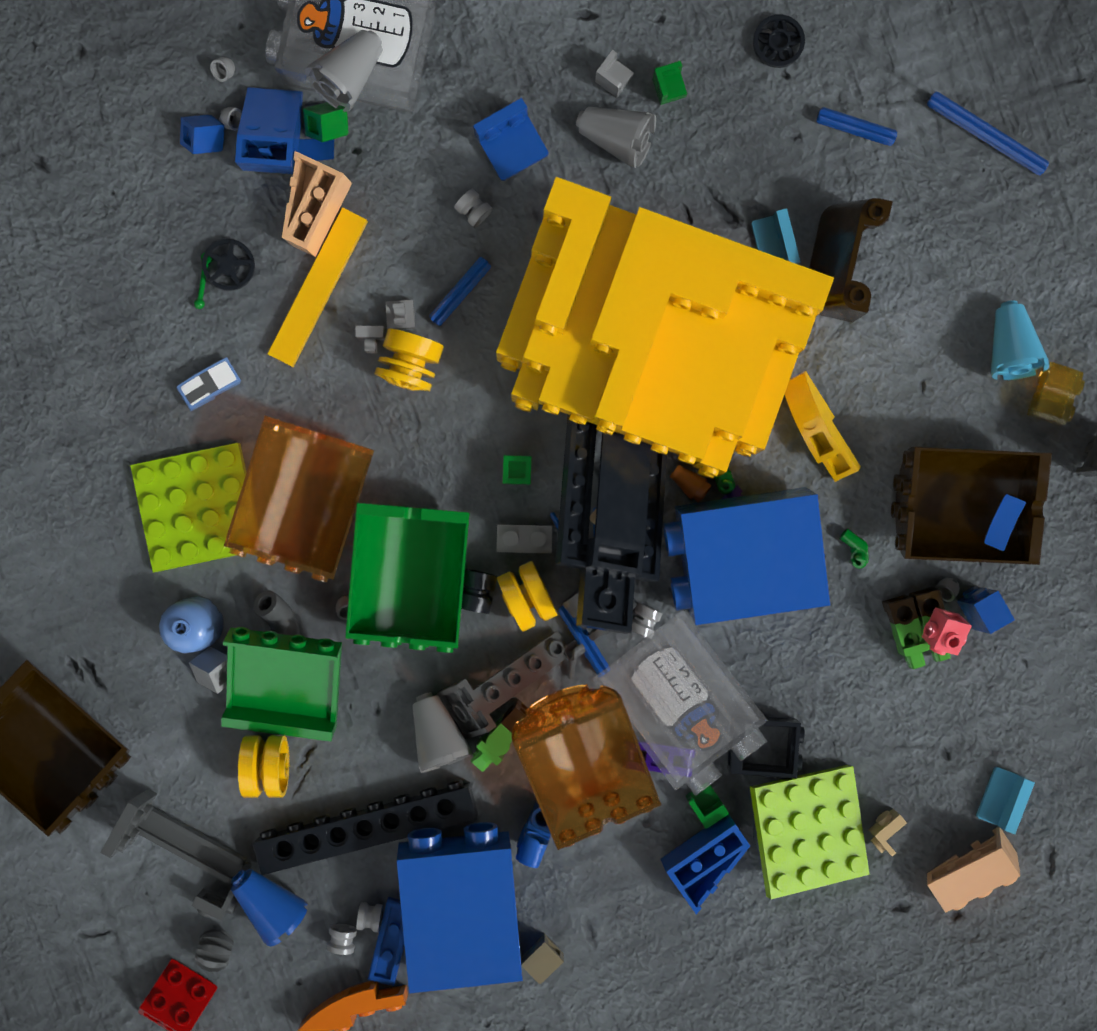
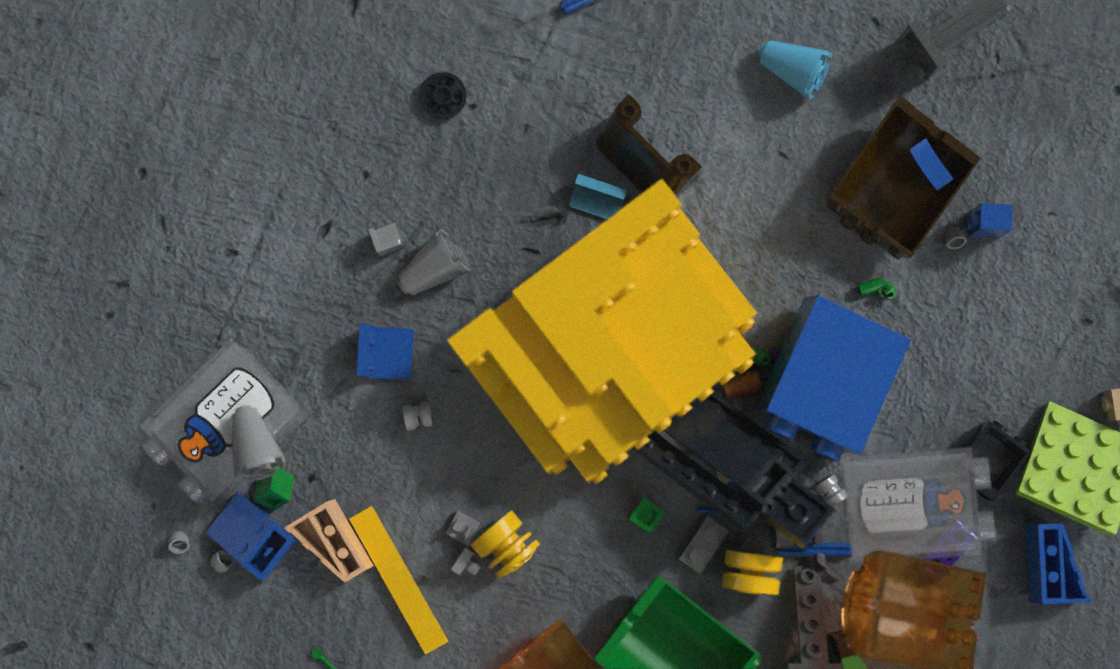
camera: 55 degrees left, 5 degrees down
(201, 134) = (218, 593): blue panel -> none
(228, 264) = (334, 639): black wheel -> none
(317, 150) = (288, 513): blue sticker -> none
(460, 291) = (475, 468): blue axle -> none
(476, 591) = (720, 608): black wheel -> none
(669, 83) = (421, 201): green panel -> none
(707, 806) = (1010, 537): green panel -> none
(817, 428) = (764, 258): yellow slope -> none
(856, 126) = (548, 78): blue axle -> none
(908, 618) = (970, 278): hips -> none
(946, 632) = (988, 263): coral brick -> none
(1056, 394) = (855, 58): clear yellow brick -> none

